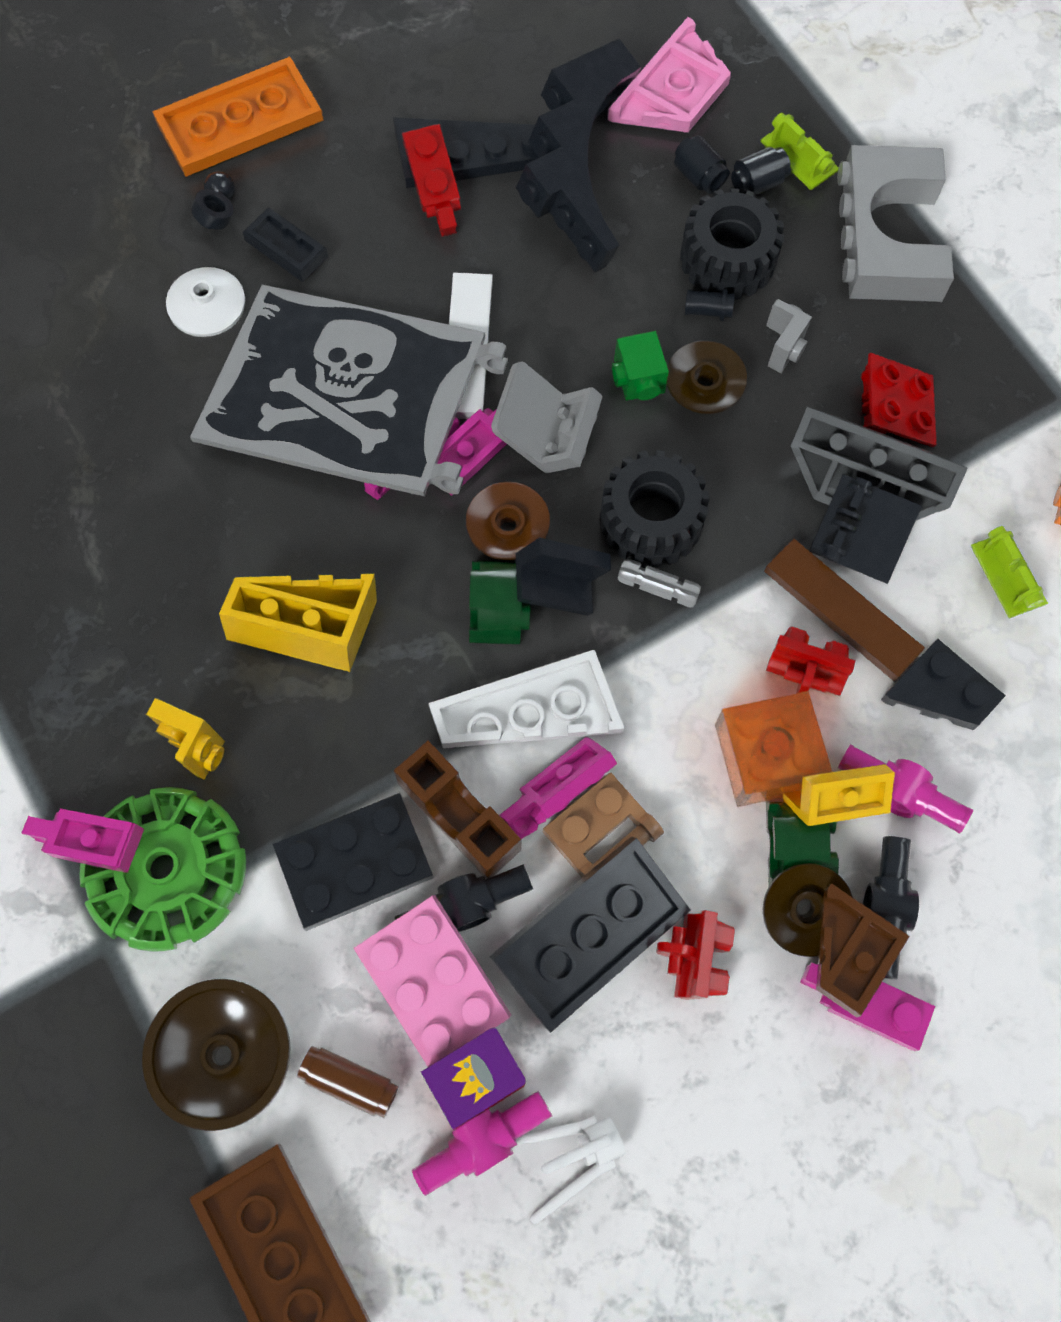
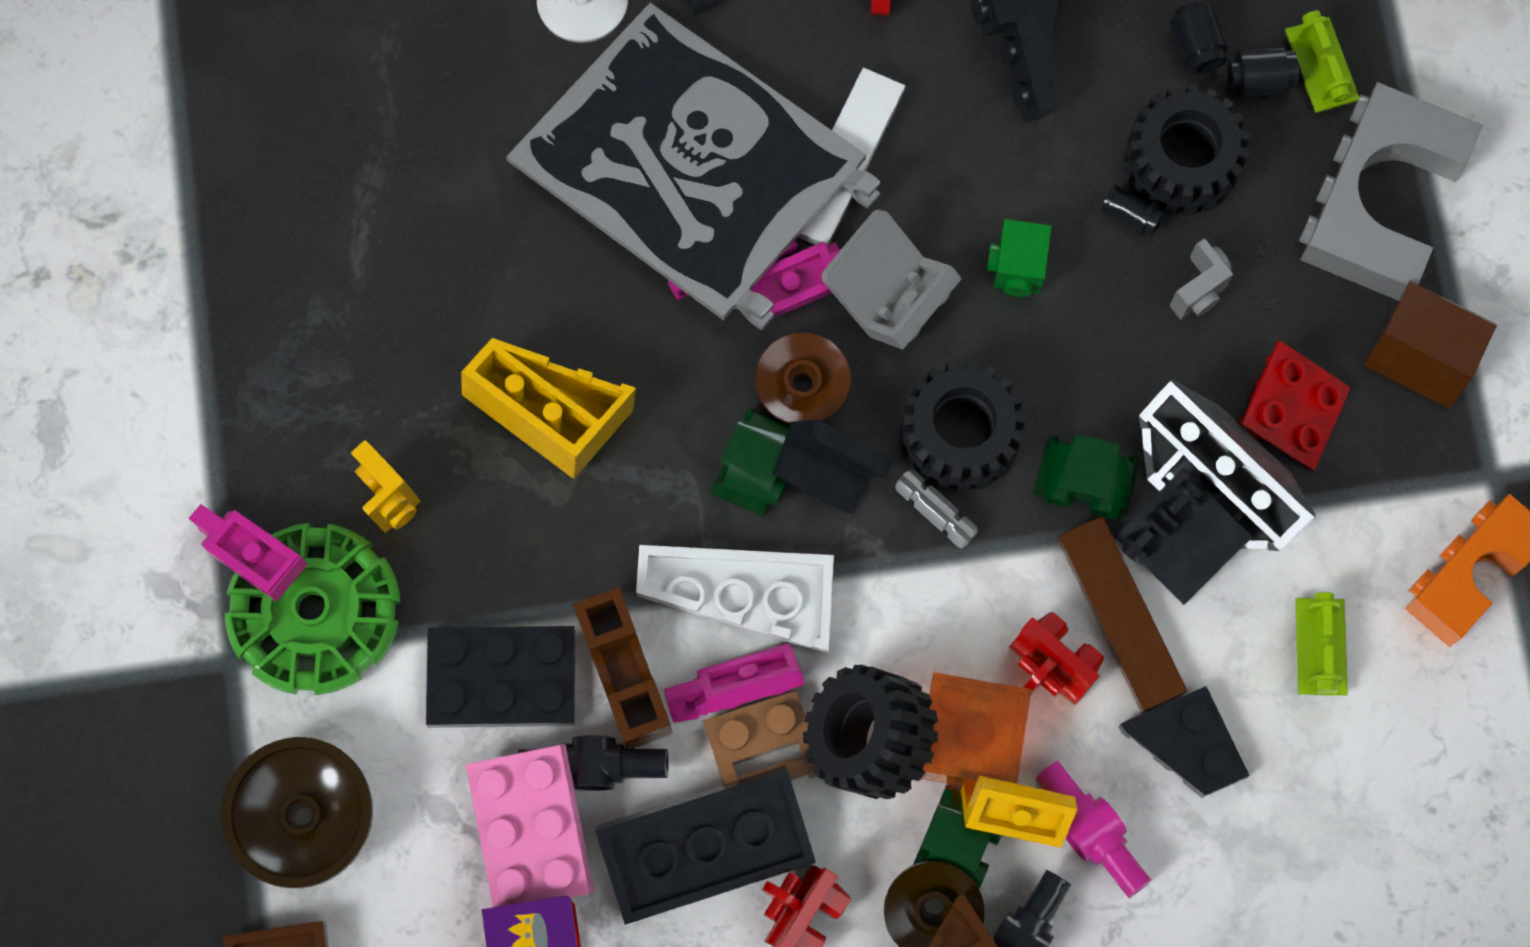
camera: 25 degrees right, 5 degrees up
(347, 1081) = (411, 890): reddish brown piece -> none
(662, 775) = (899, 738): none -> black tyre
(708, 363) = (1092, 276): dark brown dish -> none
(765, 509) = (1087, 473): none -> dark green cylinder
(983, 318) = (1431, 345): none -> reddish brown slope

